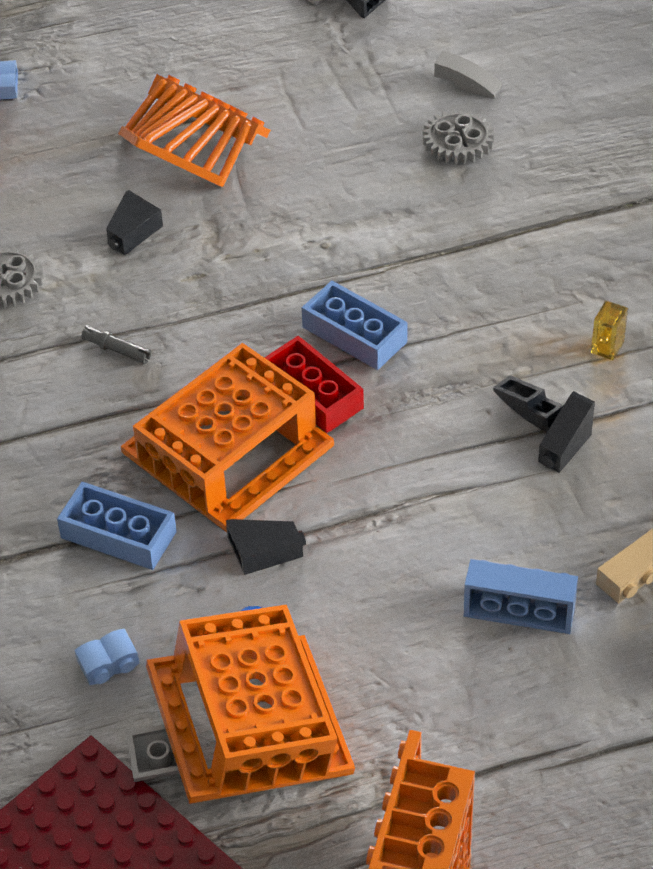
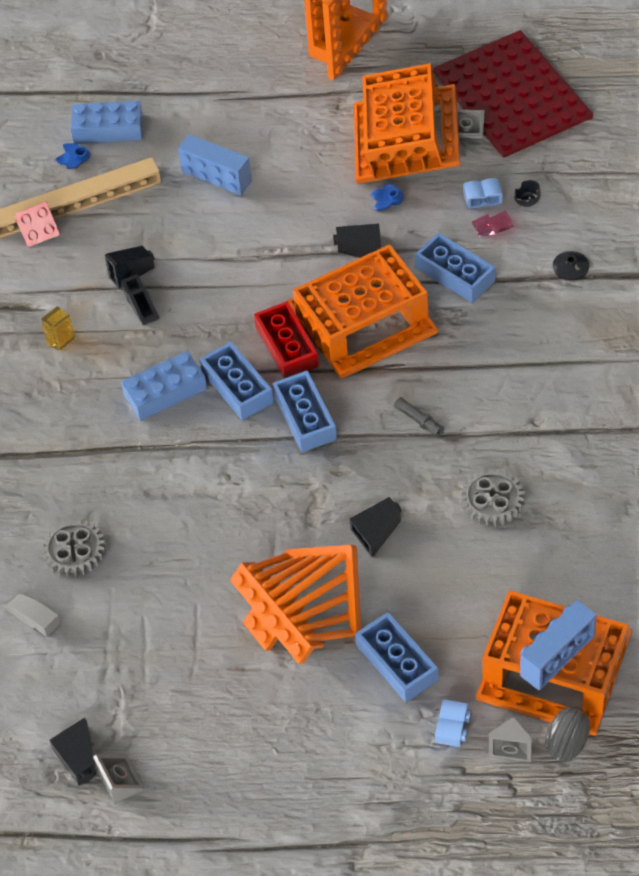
camera: 160 degrees left, 5 degrees up
(38, 665) = (528, 193): none -> black hair
(72, 110) = (397, 657): none -> medium blue brick
(86, 618) = (491, 225): none -> clear pink slope
(256, 309) = (304, 411): none -> medium blue brick
(445, 306) = (163, 385): none -> medium blue brick

